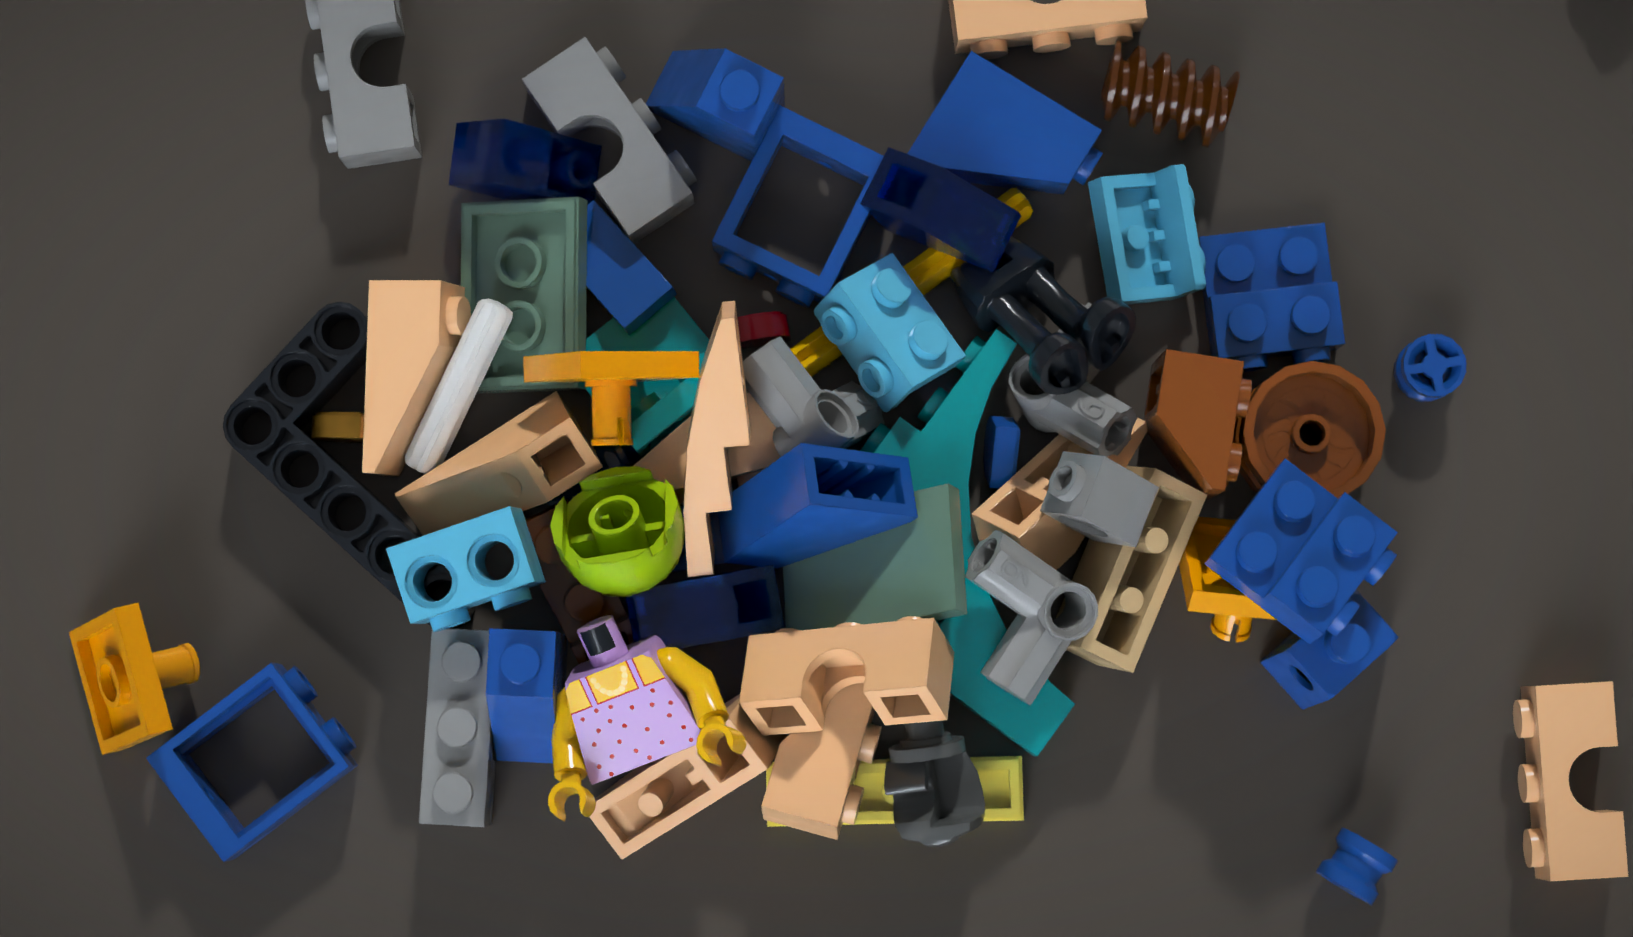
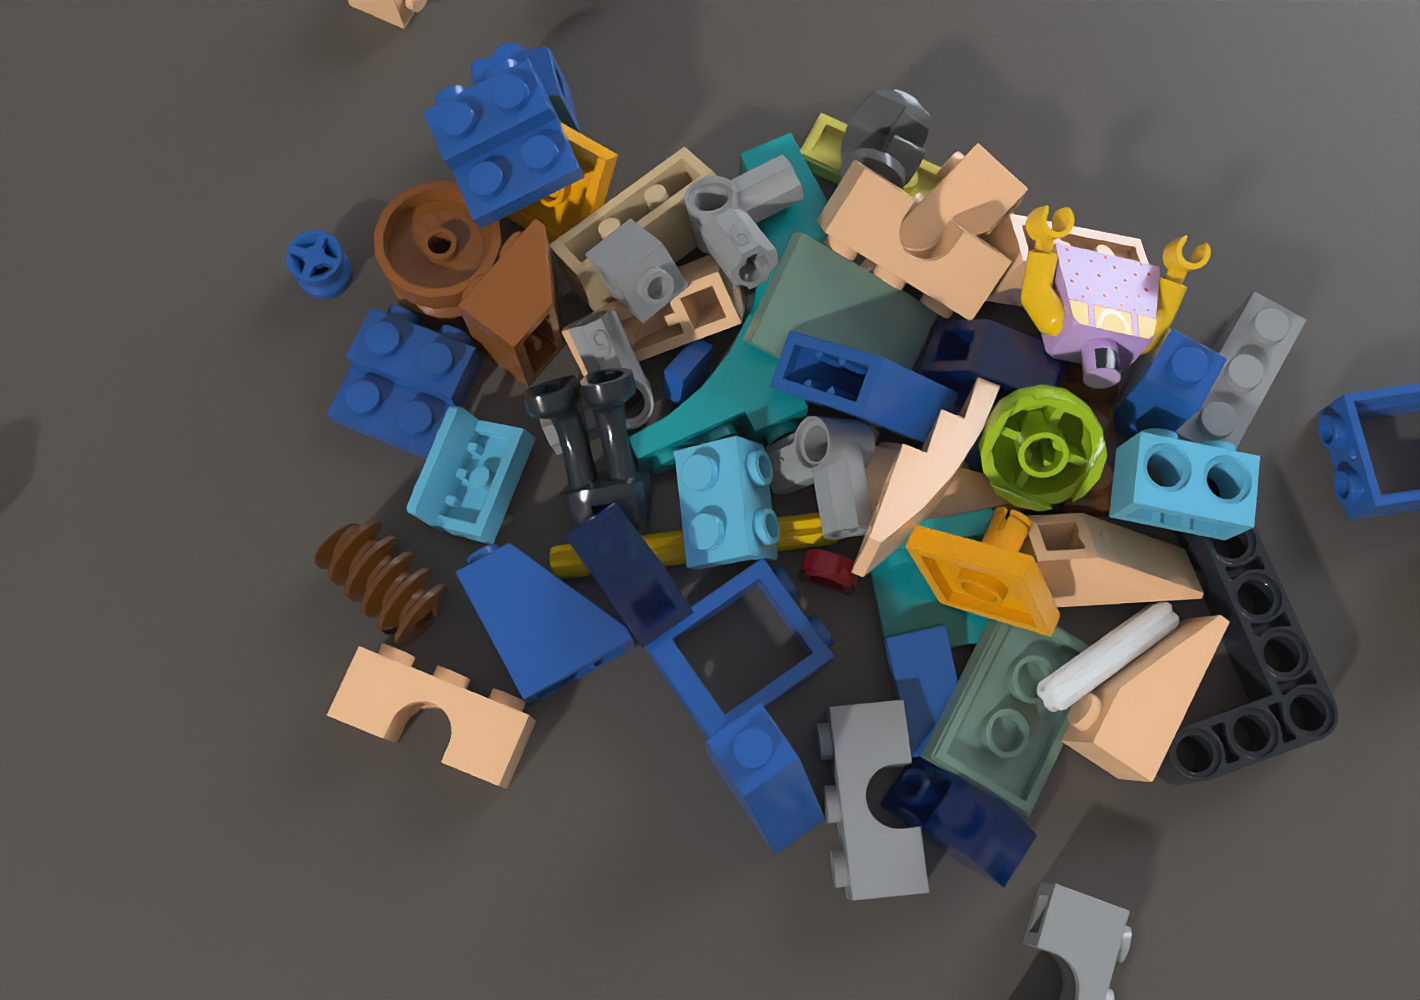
camera: 150 degrees left, 10 degrees down
(338, 427) = (1227, 677): pearl gold tile -> none

